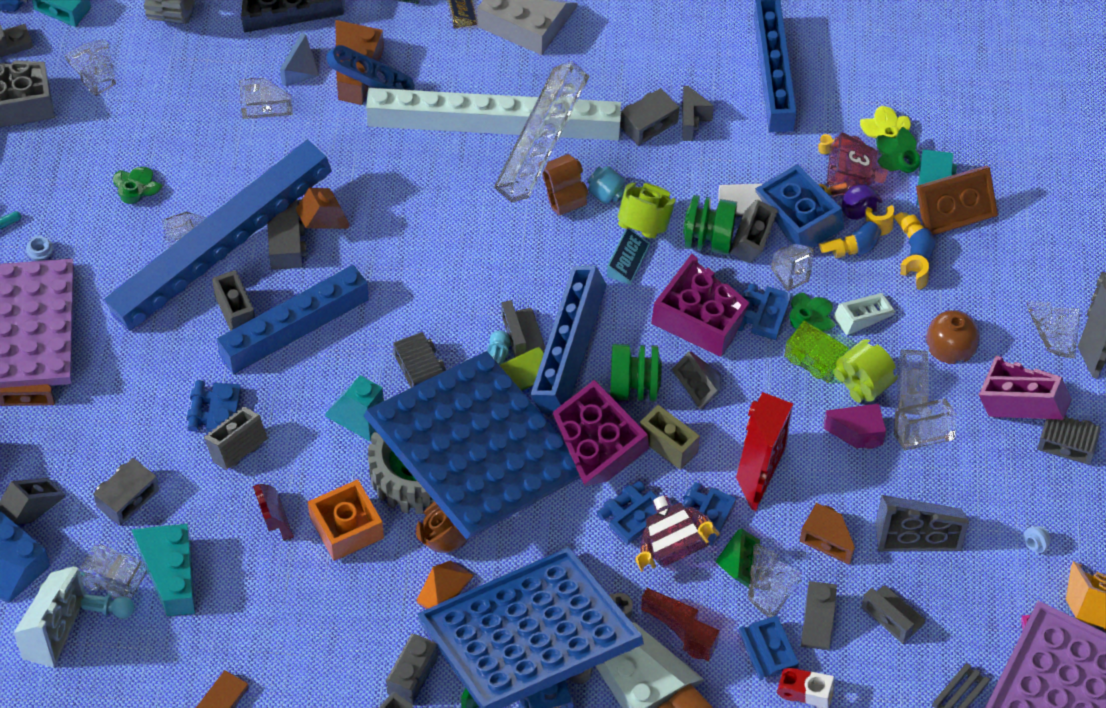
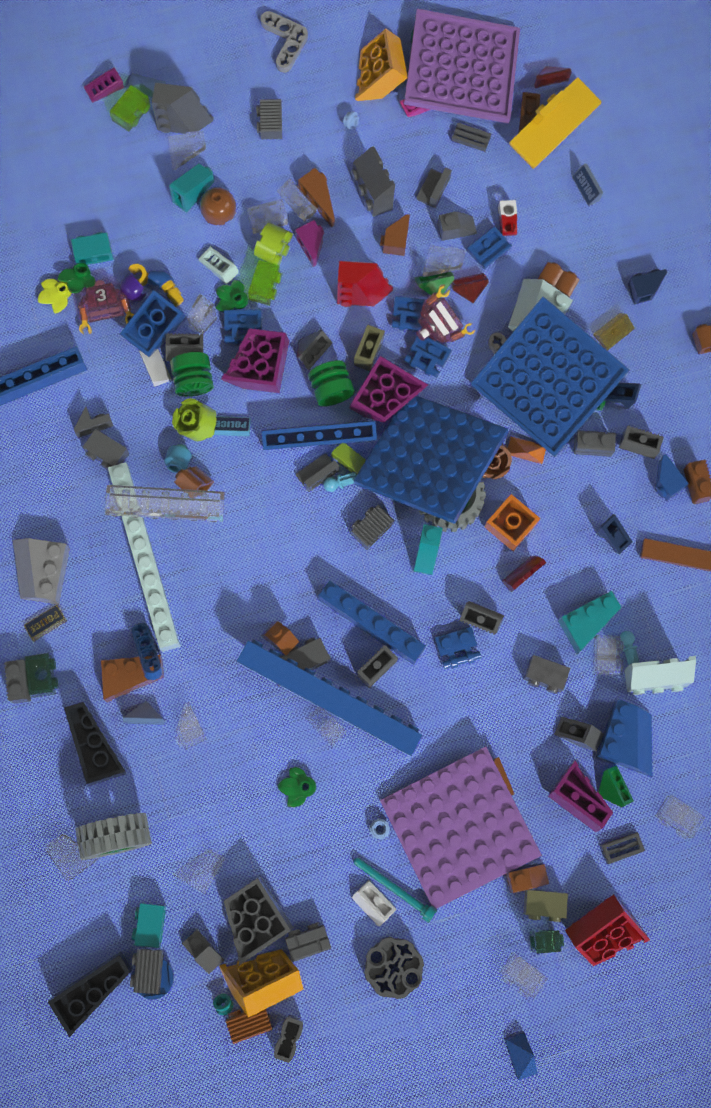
camera: 115 degrees left, 20 degrees up
(269, 641) = (615, 534): none -> dark blue slope
(698, 638) = (493, 298): clear red slope -> none
(719, 600) = (470, 286): none -> clear red slope
(922, 247) = (154, 242): yellow piece -> none
(928, 458) = (316, 189): none -> dark orange slope
(957, 200) = (110, 227): dark orange tile -> none
(989, 307) = (191, 186): none -> teal slope
(1023, 393) = (254, 146): magenta wedge -> none

